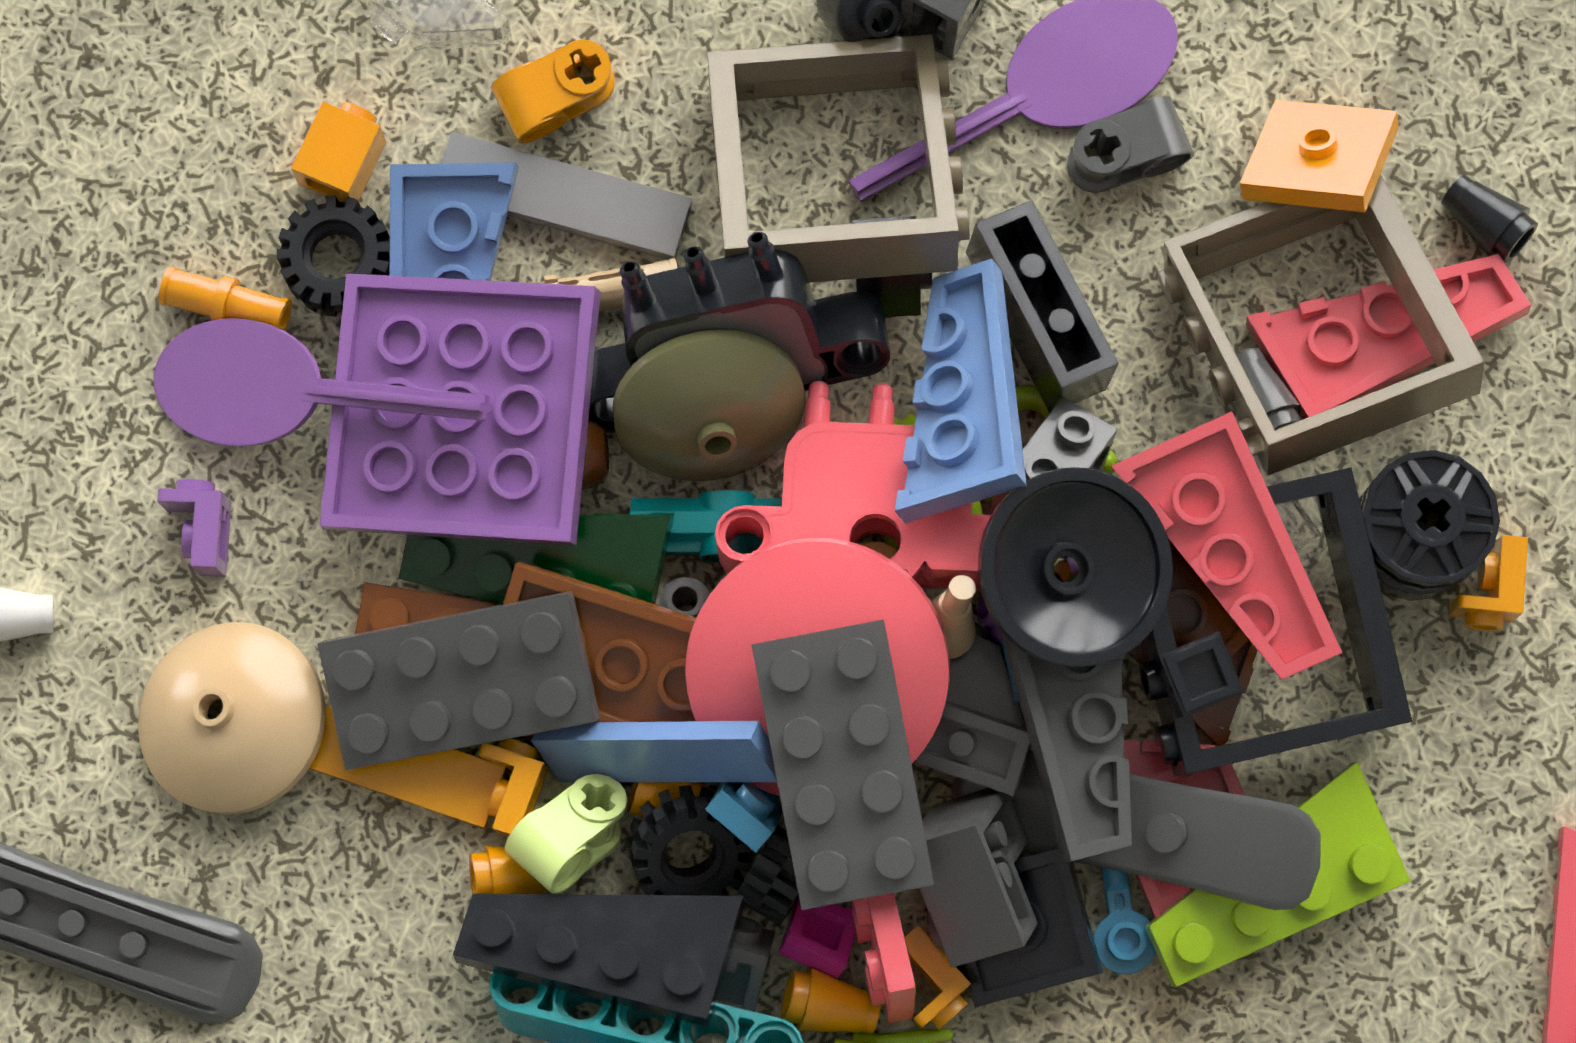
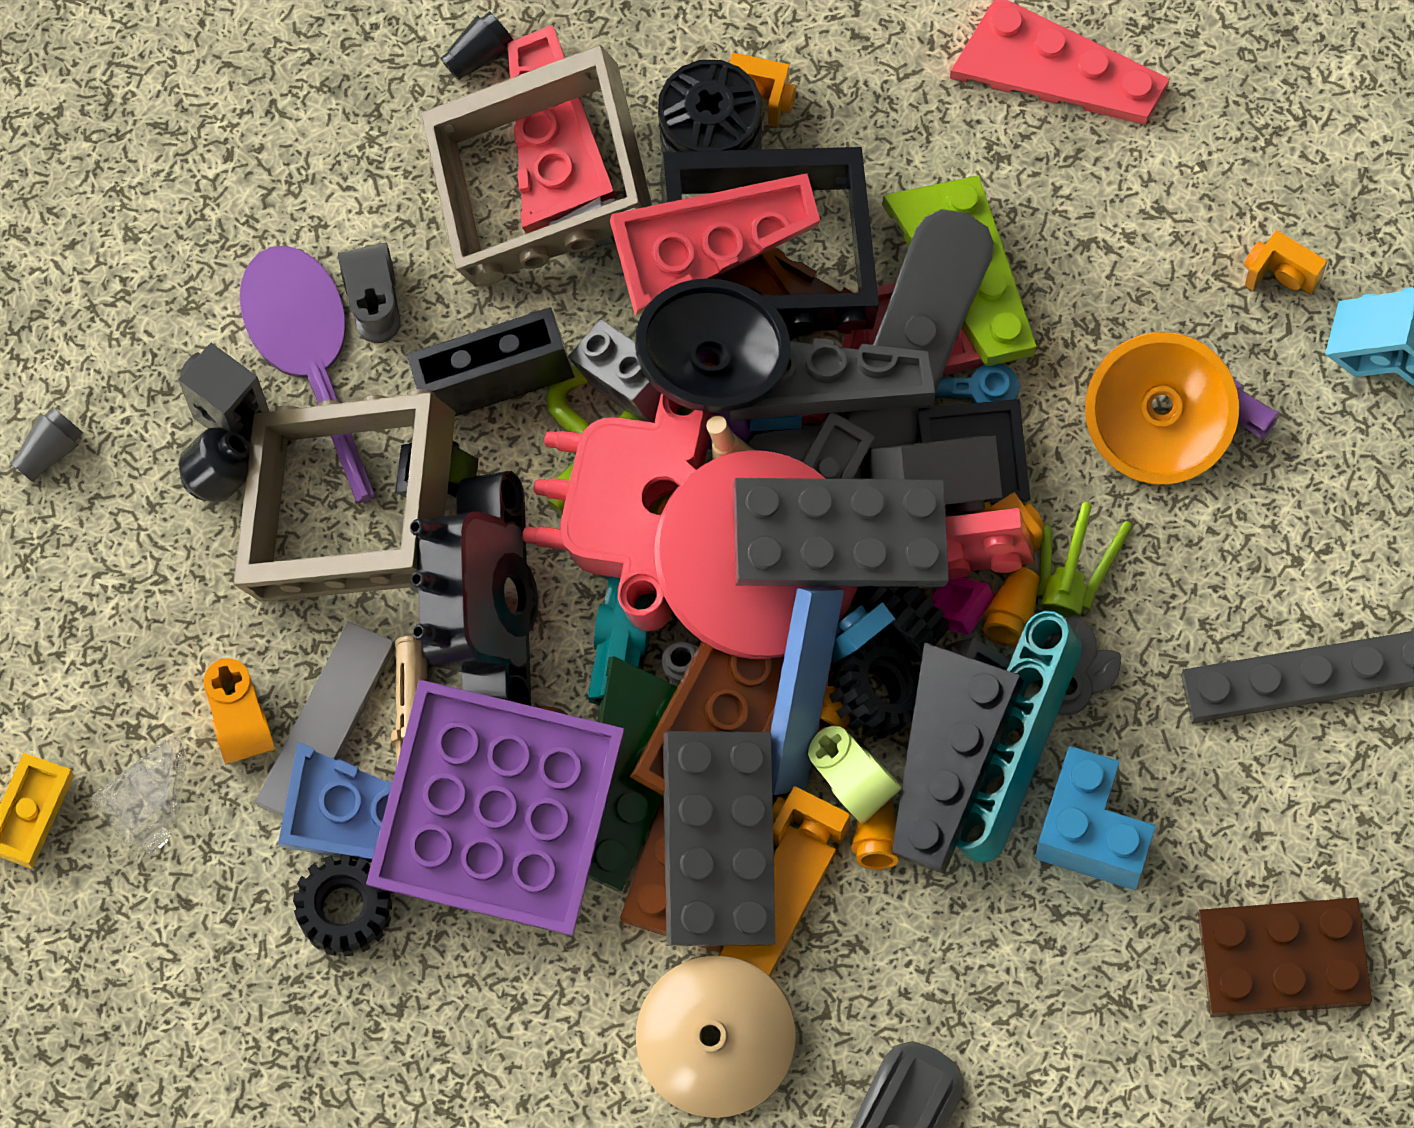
camera: 75 degrees left, 10 degrees down
(207, 535) = (559, 1035): medium lavender bracket -> none
(222, 298) = (364, 1000): light orange pin -> none
(259, 384) = (444, 970): medium lavender piece -> none
(339, 151) = (256, 889): light orange brick -> none
(708, 405) = (528, 616): olive dish -> none
(967, 401) = (575, 412): medium blue wing -> none
(1199, 674) = (805, 280): black tile -> none
(1319, 155) = (409, 149): plate -> none

